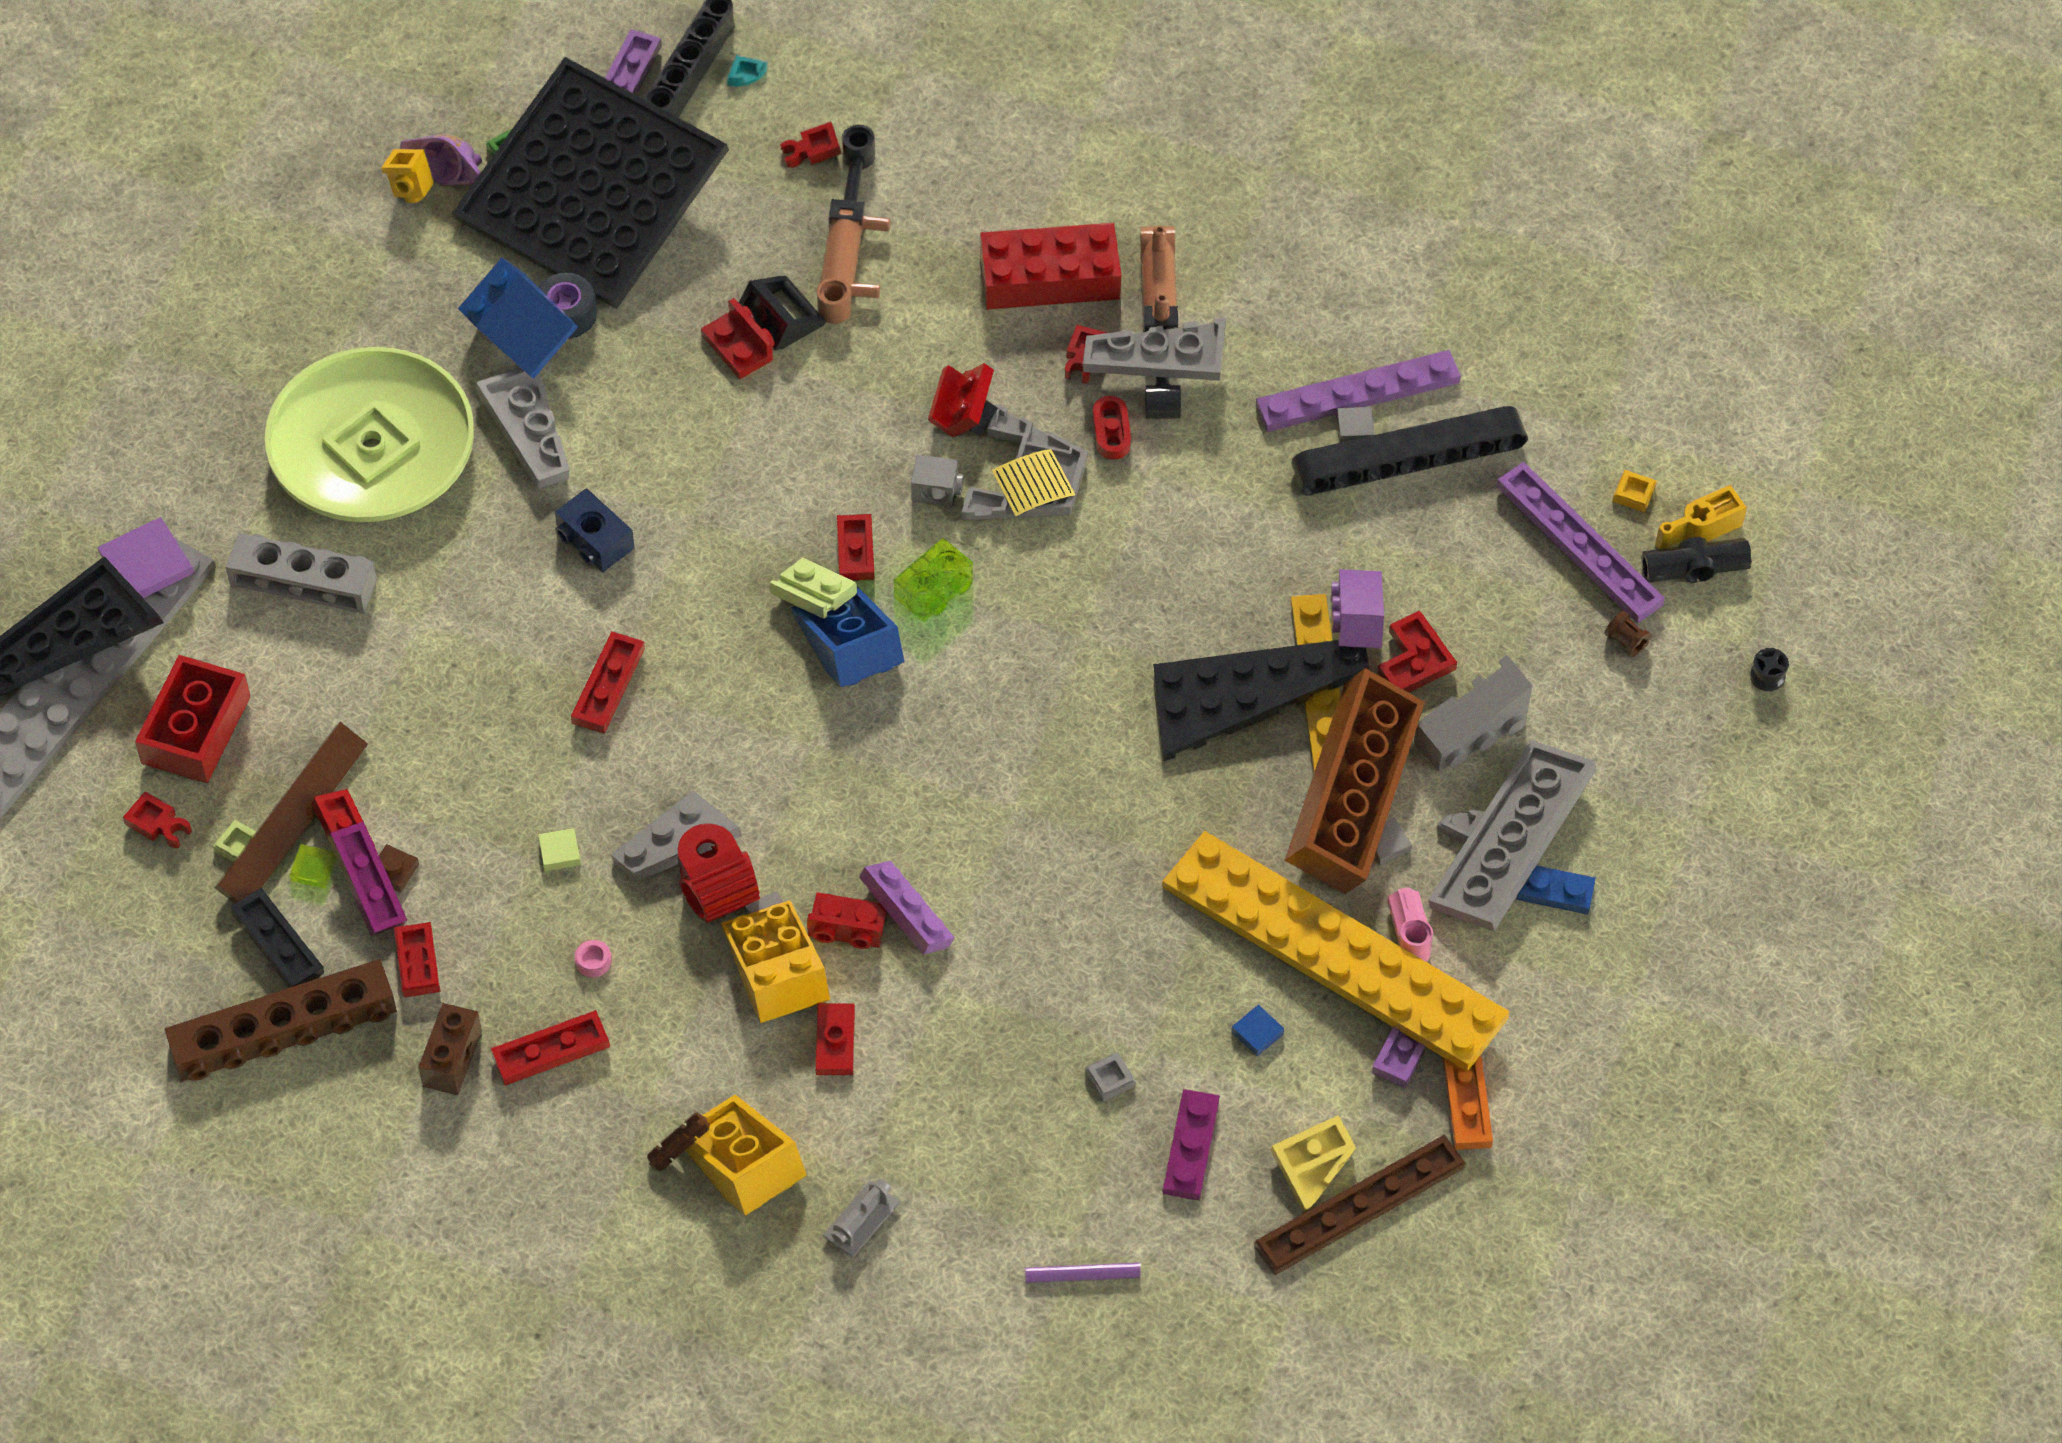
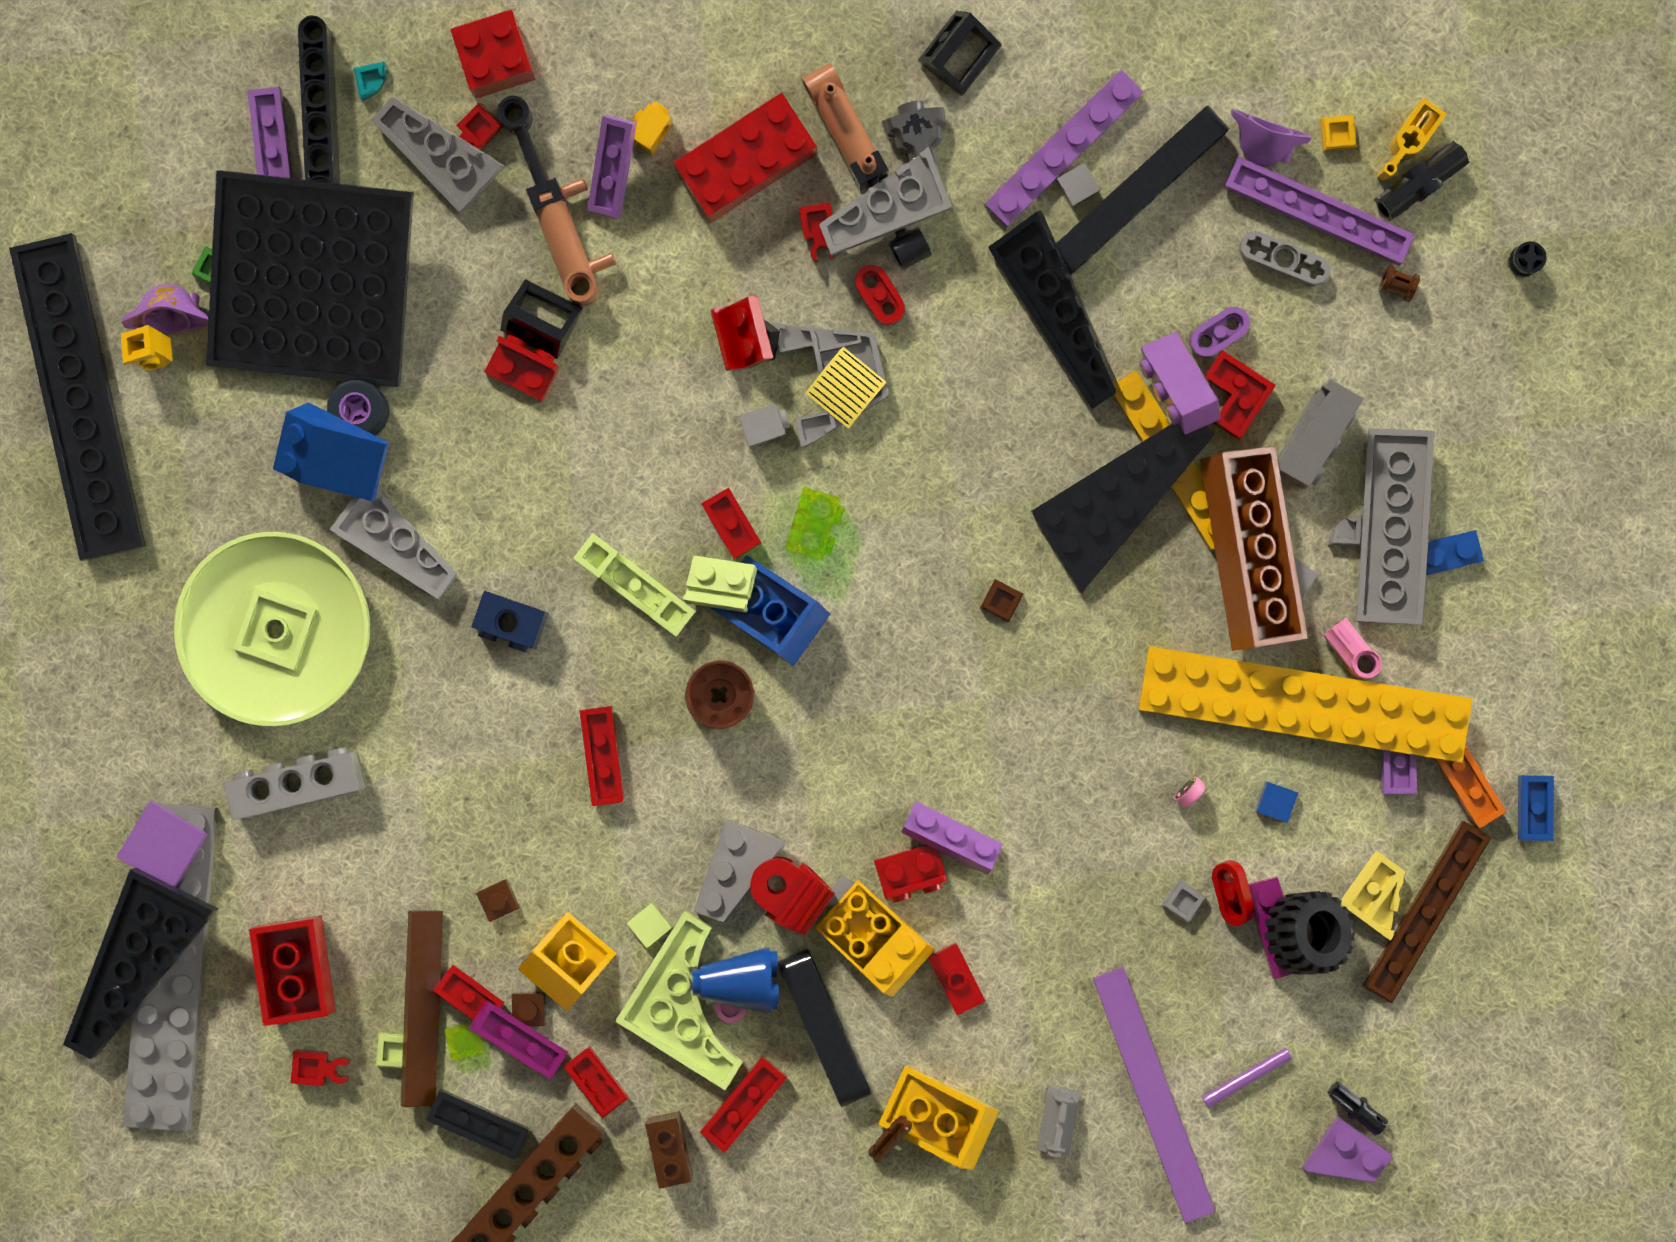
camera: 25 degrees left, 30 degrees up
(318, 192) = (77, 397): none -> black plate
(426, 761) = (498, 900): none -> reddish brown plate
(457, 837) = (566, 961): none -> yellow slope
(532, 925) = (669, 1014): none -> yellowish green plate
(619, 925) = (740, 981): none -> blue cone
(674, 1017) = (824, 1028): none -> black beam
(728, 552) = (634, 584): none -> yellowish green slope
(753, 671) = (738, 694): none -> copper wheel
(771, 149) = (441, 156): none -> light grey wing
(868, 92) = (492, 54): none -> red brick
(921, 216) = (611, 166): none -> medium lavender plate
(974, 208) = (651, 127): none -> yellow brick
(974, 1244) = (1153, 1094): none -> medium lavender tile
(1079, 730) = (1001, 600): none -> reddish brown tile
(1149, 1396) = (1347, 1154): none -> medium lavender wing
(1165, 1087) = (1232, 892): none -> red plate
(1172, 975) = (1190, 792): none -> bright pink tile
(1184, 1353) = (1357, 1108): none -> black axle
(1203, 1161) = (1330, 933): none -> black tyre
(1229, 303) = (916, 128): none -> dark grey rock
(1275, 490) = (1047, 290): none -> black wing
(1321, 250) = (949, 40): none -> black tile
(1424, 597) = (1218, 332): none -> medium lavender plate
(1522, 554) = (1302, 275): none -> light grey beam
(1527, 1156) = (1536, 807): none -> blue plate
(1556, 461) = (1266, 141): none -> medium lavender hat

